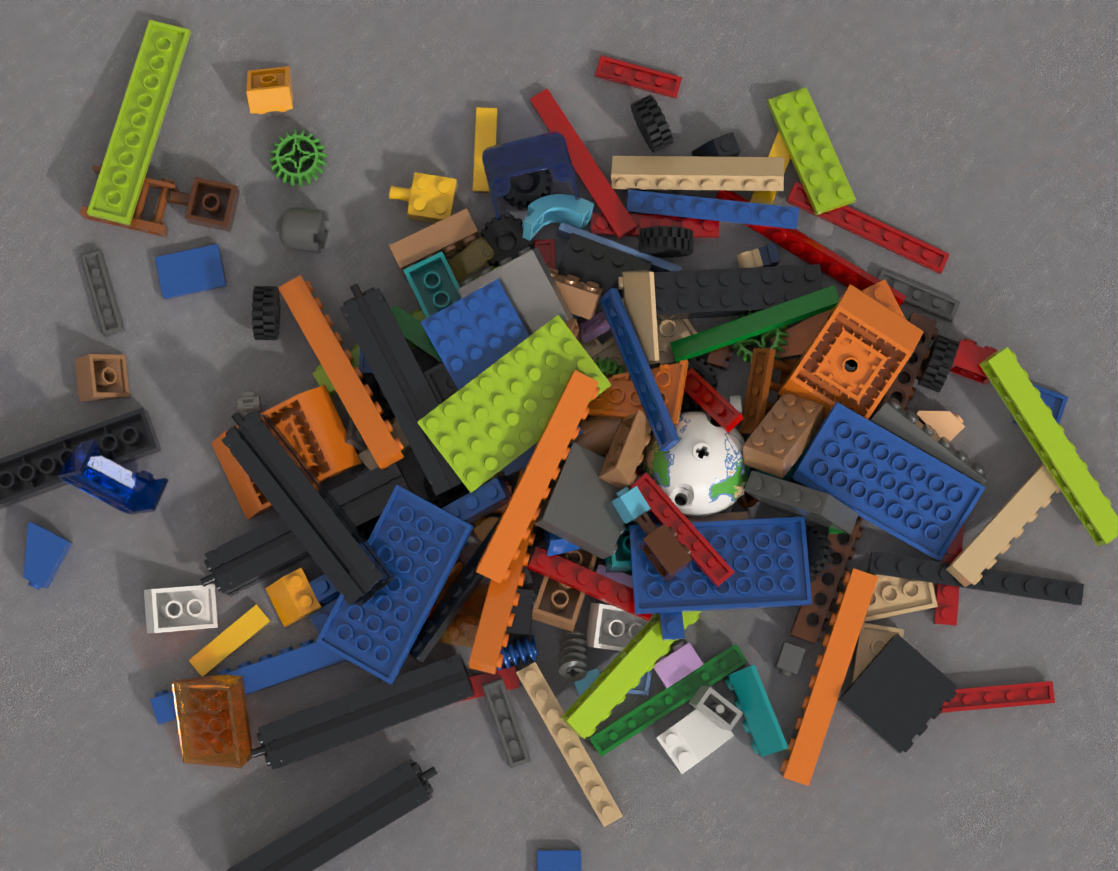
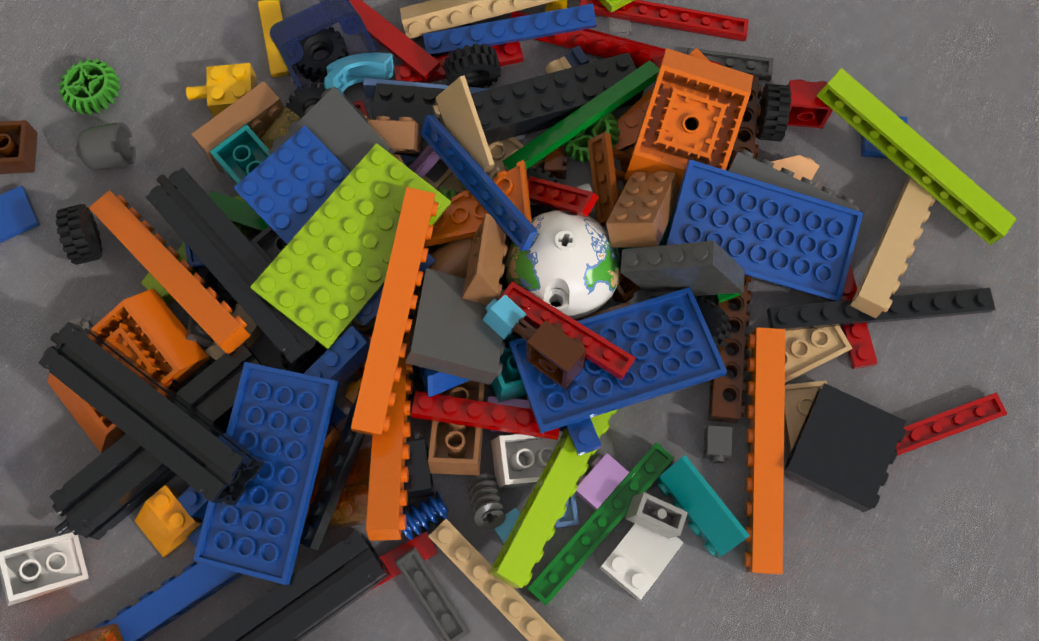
camera: 15 degrees left, 10 degrees down
(229, 640) = (104, 589): yellow tile -> none
(269, 90) = (50, 34): light orange slope -> none

